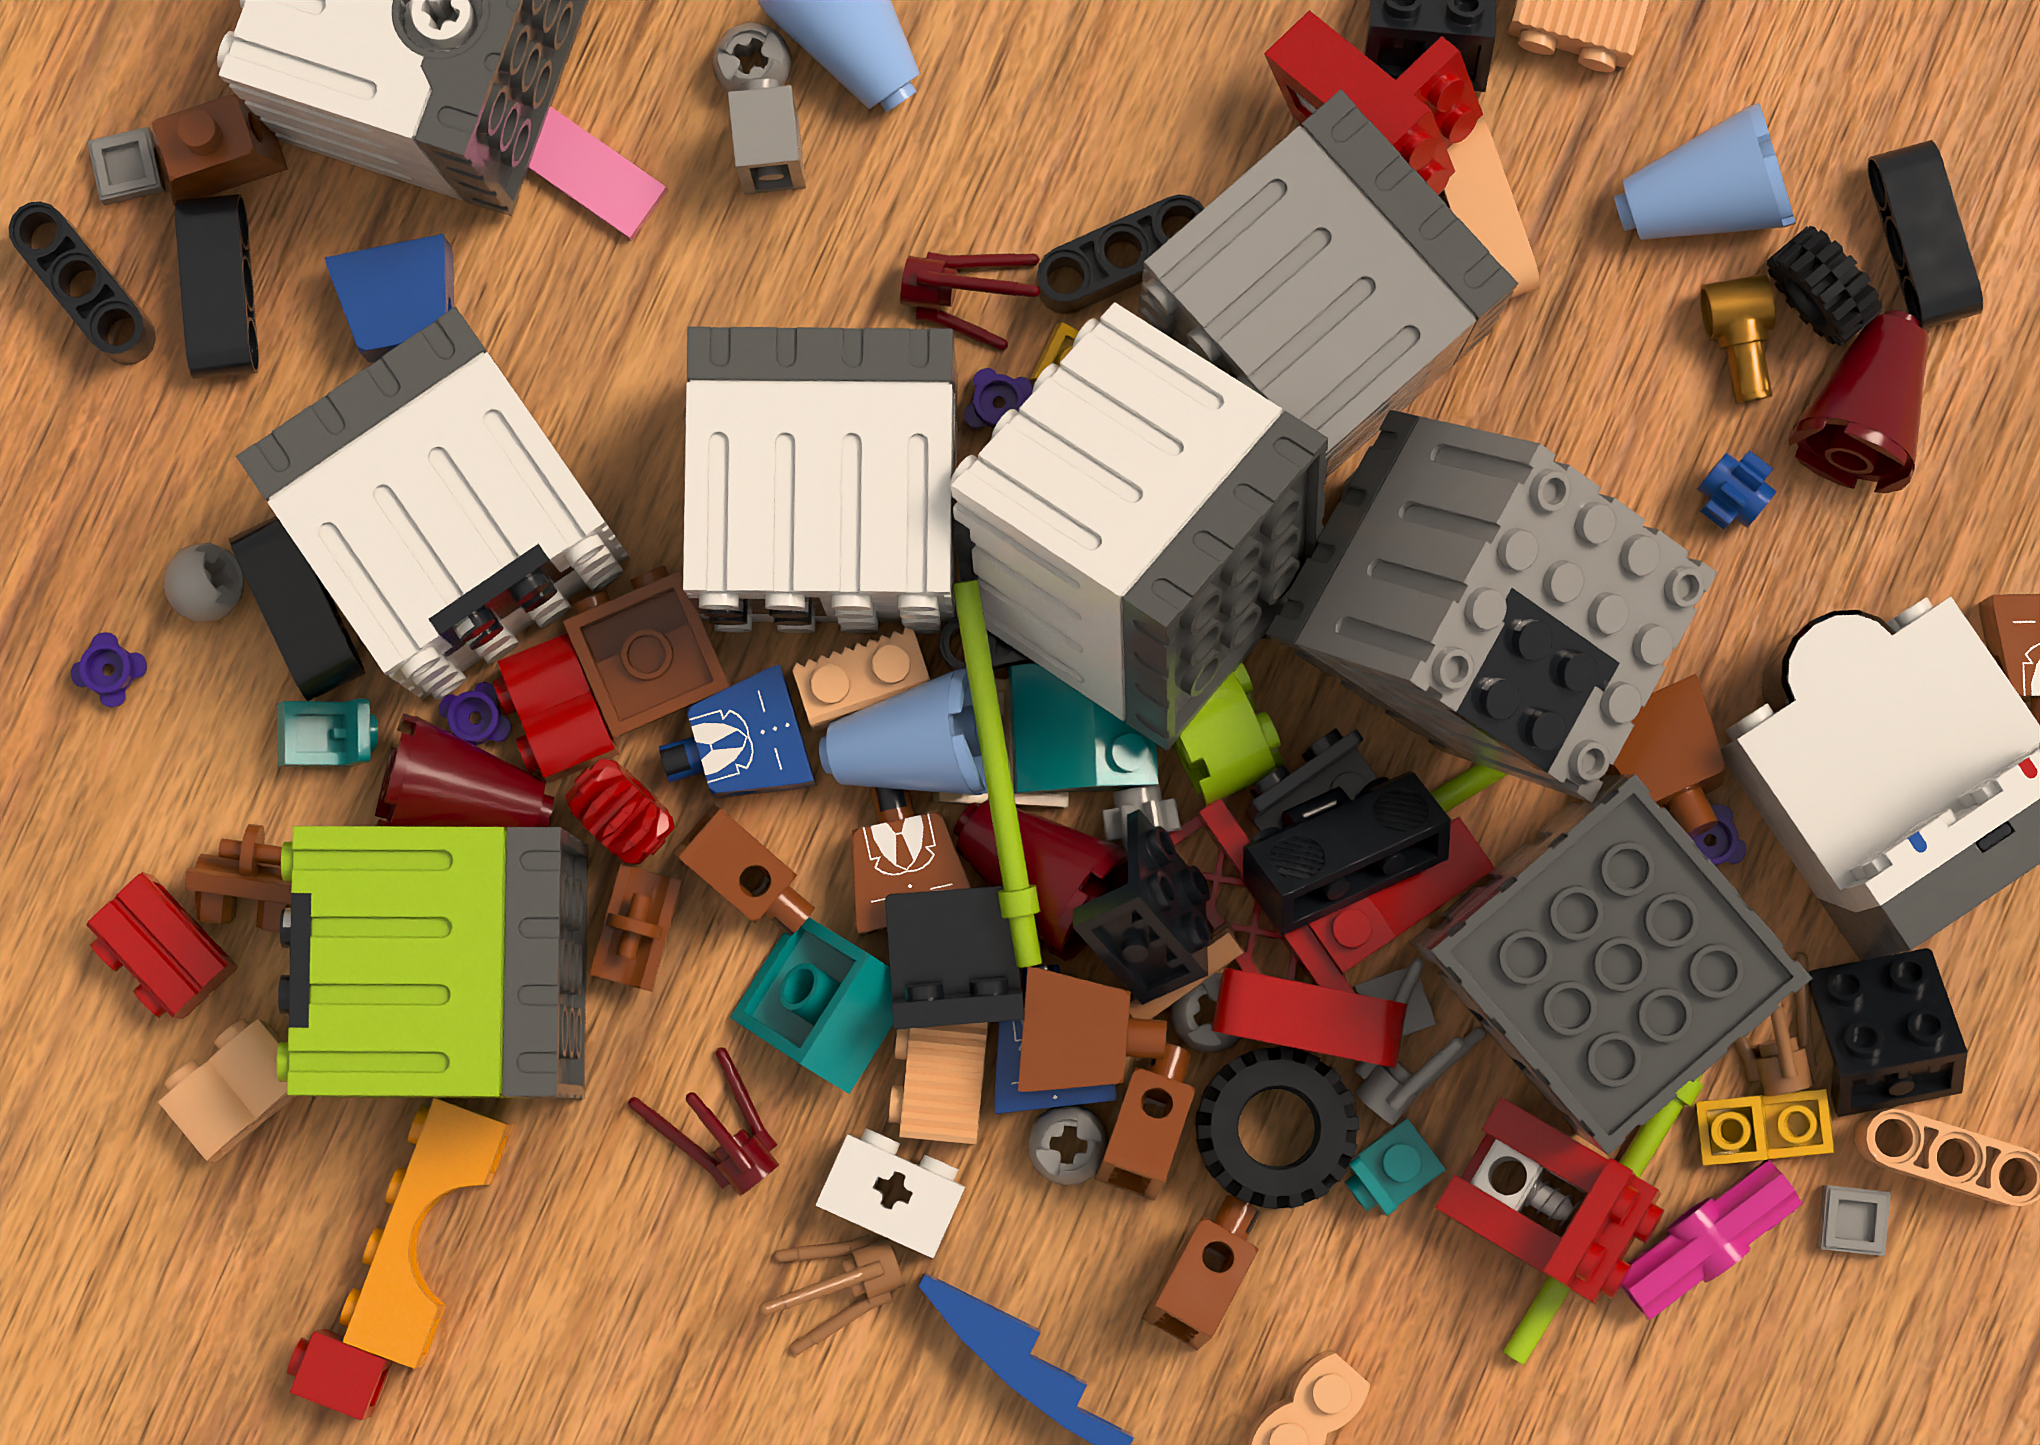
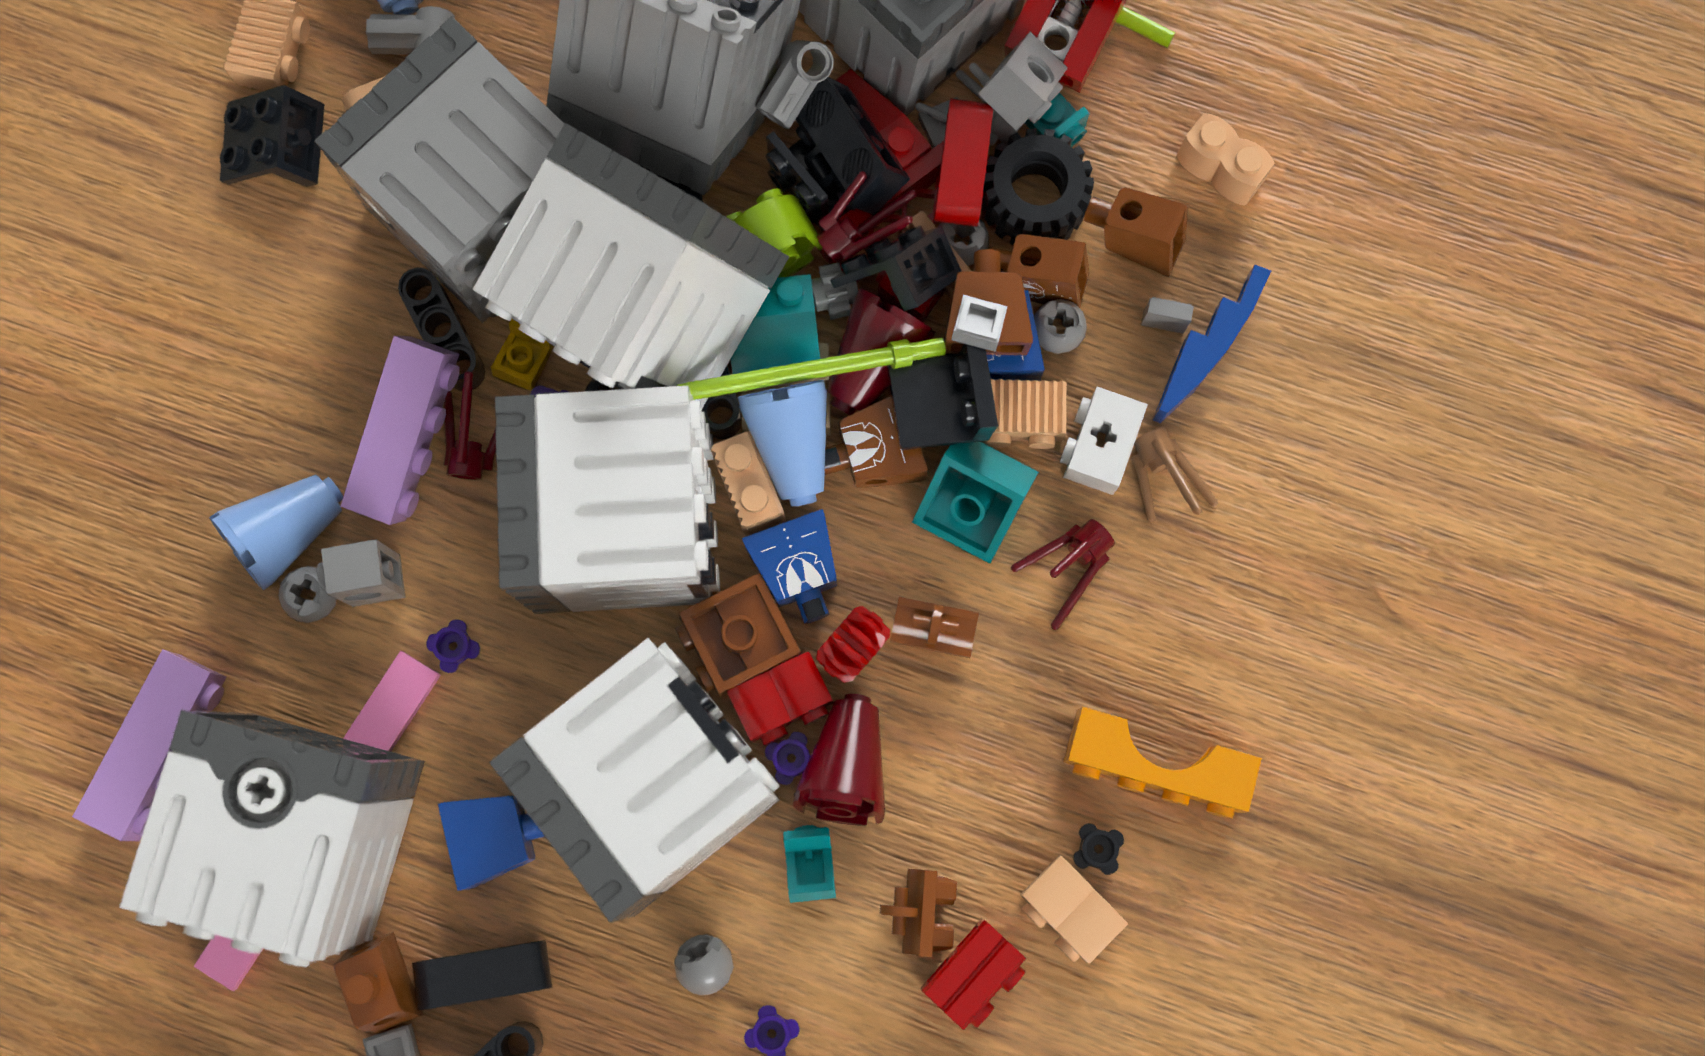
camera: 95 degrees left, 5 degrees down
(297, 609) = (716, 894): black beam -> none
(299, 1140) = (1110, 842): none -> black plate
(338, 1374) = (1269, 817): red brick -> none
(434, 962) = (983, 751): lime piece -> none
(667, 241) = (440, 643): none -> dark purple plate
(719, 854) = (886, 557): dark orange torso -> none
(968, 195) = (400, 430): none -> lavender brick
(1044, 1014) = (979, 323): none -> tile
(1074, 1305) = (1167, 315): none -> light grey tile
(1203, 831) = (844, 238): none -> dark red plant
(1416, 112) = (309, 187): red brick -> none
(1427, 1116) = (1024, 82): none -> light grey brick
(1436, 775) = (793, 86): none -> light grey piece
(1581, 240) = (402, 32): none -> light grey piece

